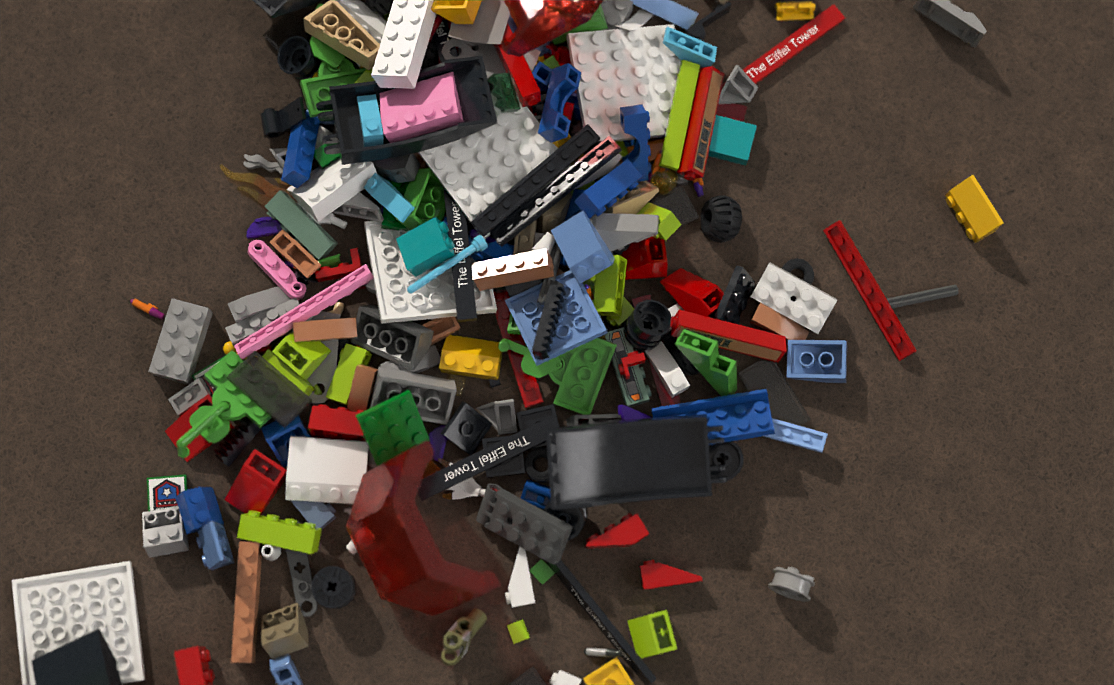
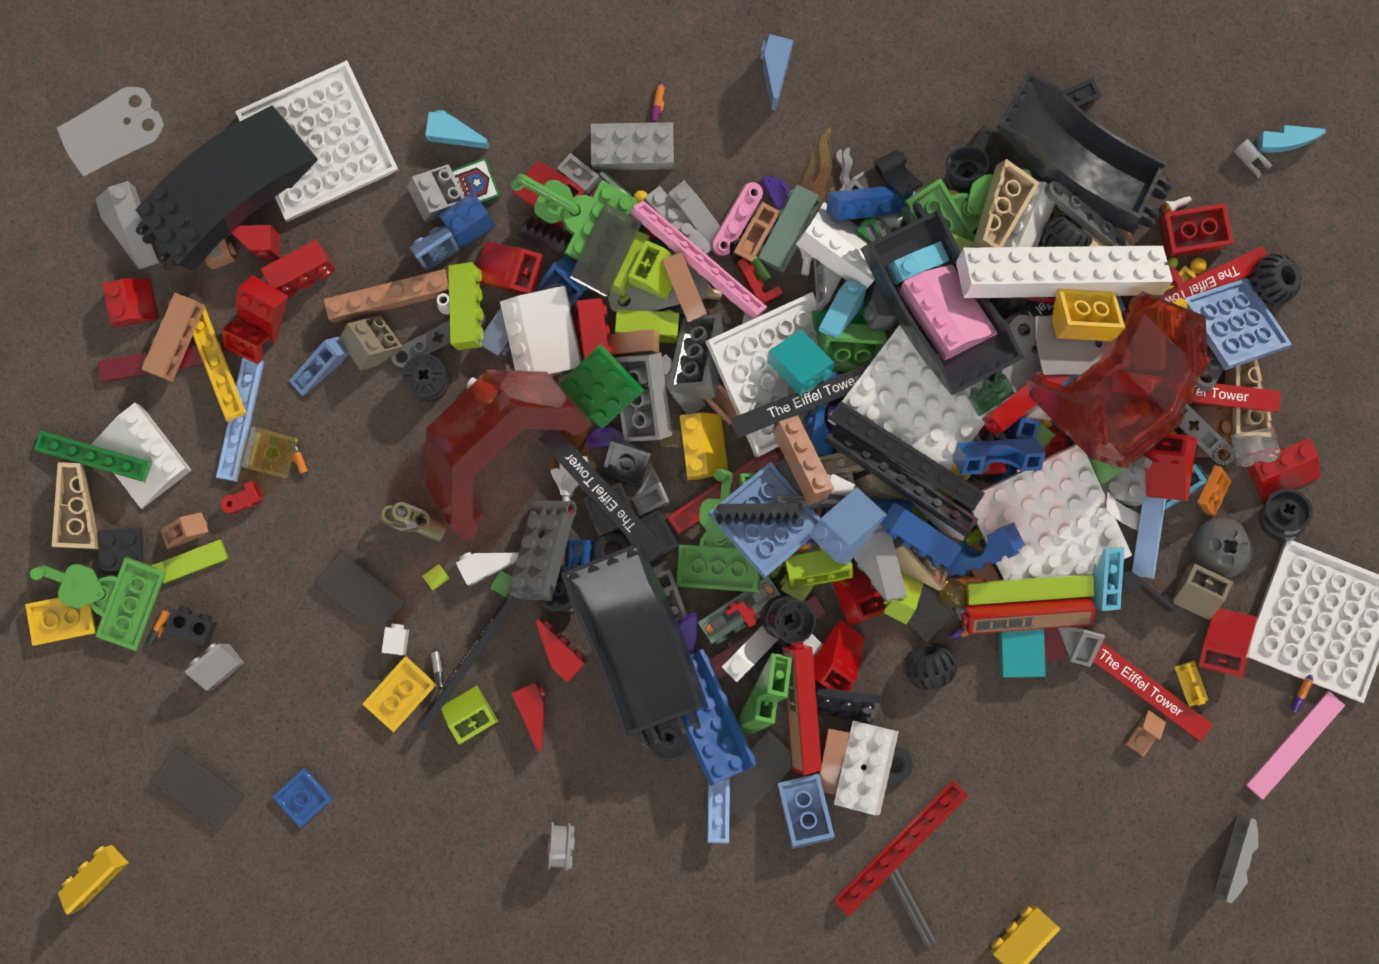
camera: 75 degrees right, 5 degrees up
(110, 502) = (447, 129): none -> medium azure slope
(150, 195) = (775, 58): none -> medium blue slope
(477, 244) = (819, 416): medium azure piece -> none
(825, 59) = (1146, 733): none -> nougat slope

